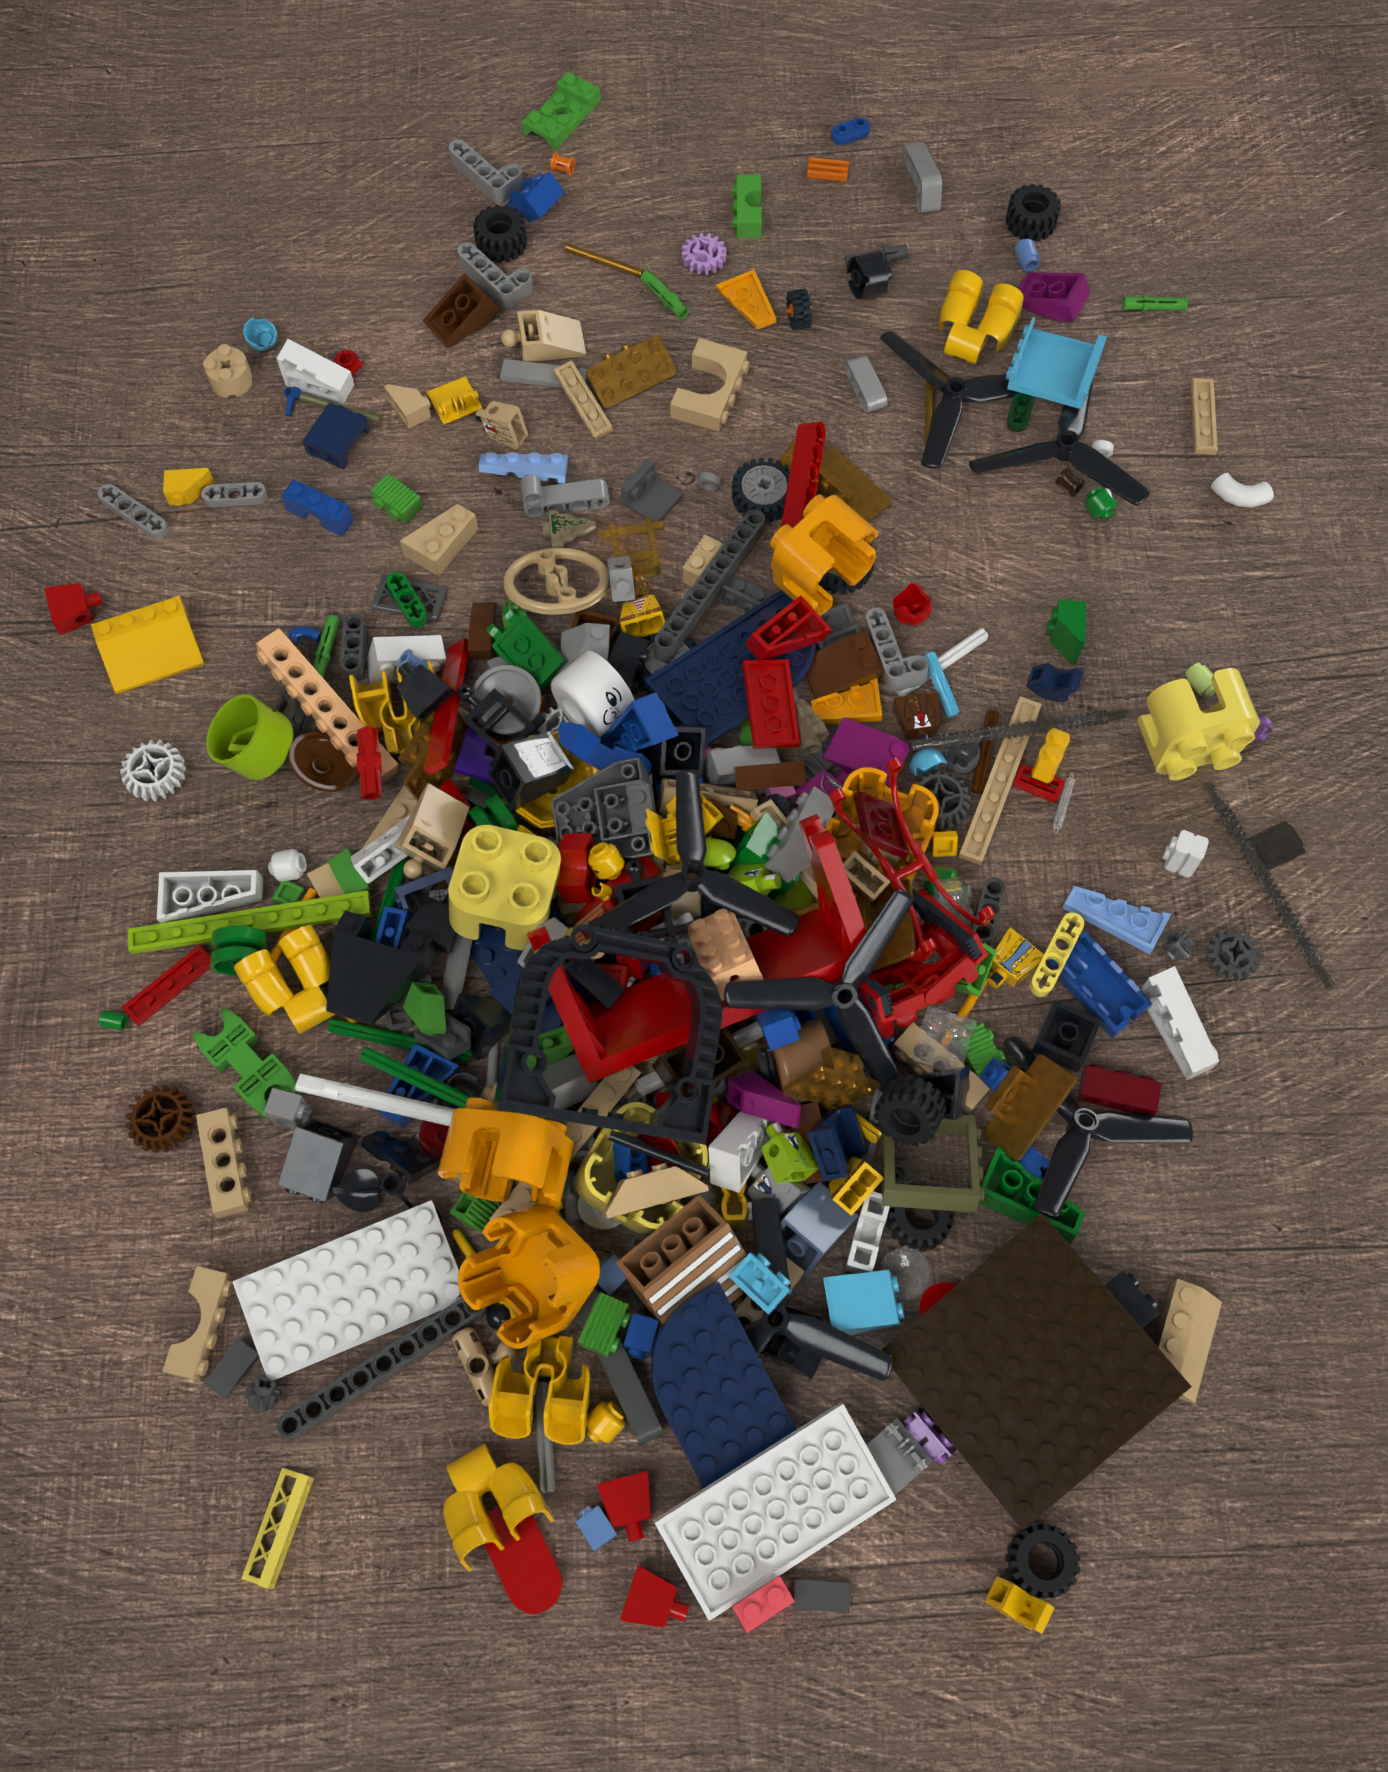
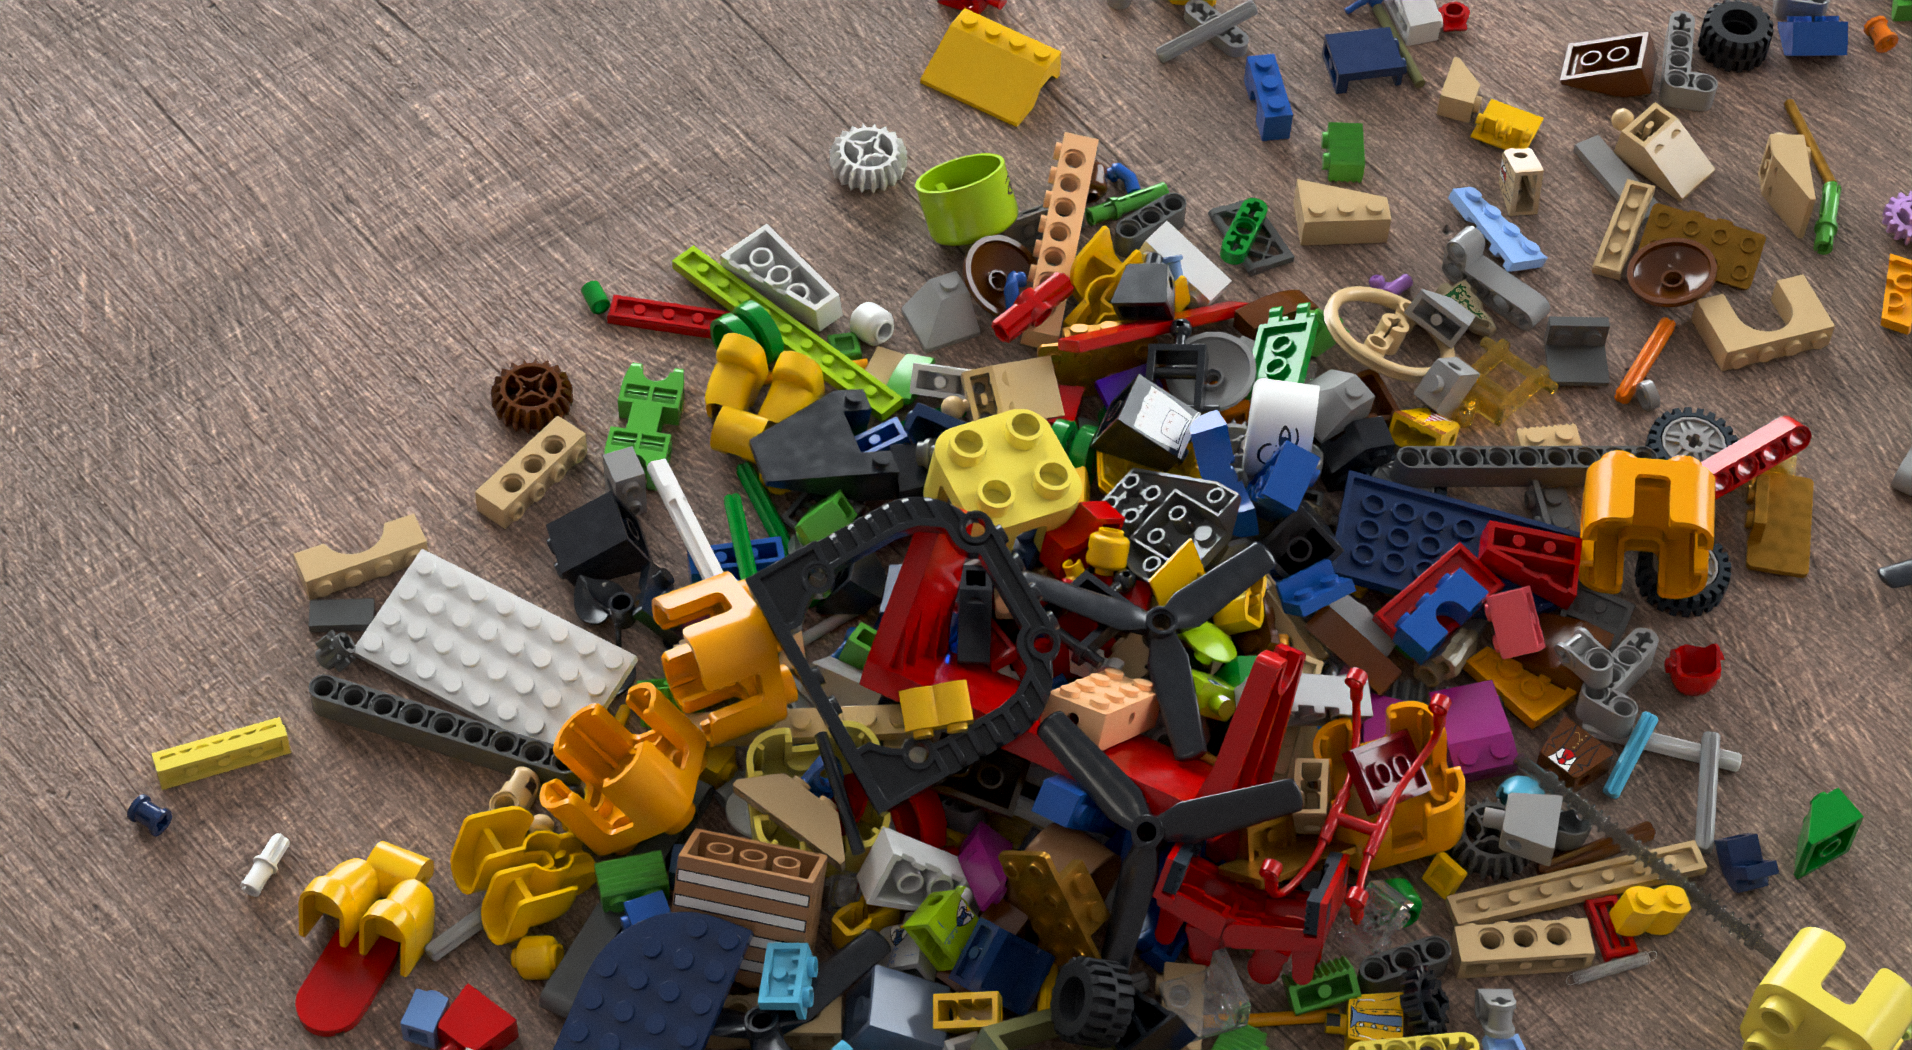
camera: 50 degrees right, 15 degrees down
(236, 502) = (1206, 31): none -> light grey axle
(292, 1614) = (149, 815): none -> dark blue bush
(315, 818) = (941, 313): none -> light grey slope
(339, 764) = (1011, 289): none -> blue arm
(393, 1557) = (265, 865): none -> white axle
(435, 910) = (924, 452): none -> dark grey plate
(516, 553) = (1396, 287): none -> medium lavender arm
(571, 543) = (1440, 316): none -> light grey slope
(628, 291) = (1788, 180): none -> tan slope
(638, 390) = (1672, 272): none -> reddish brown dish
(677, 1057) = (936, 708): none -> yellow brick
(681, 463) = (1645, 360): none -> orange axle
(721, 766) = (1312, 589): none -> blue bracket
(788, 729) = (1455, 597): none -> blue arch
(818, 674) = (1514, 623): none -> coral brick
(874, 656) = (1583, 656): none -> light grey piece
(958, 775) = (1527, 825): none -> light grey torso
(994, 664) = (1707, 791): none -> light grey axle
(1024, 920) = (1424, 1001): none -> black gear
(1039, 810) = (1507, 958): none -> tan brick
(1054, 886) = (1495, 1012): none -> light grey piece

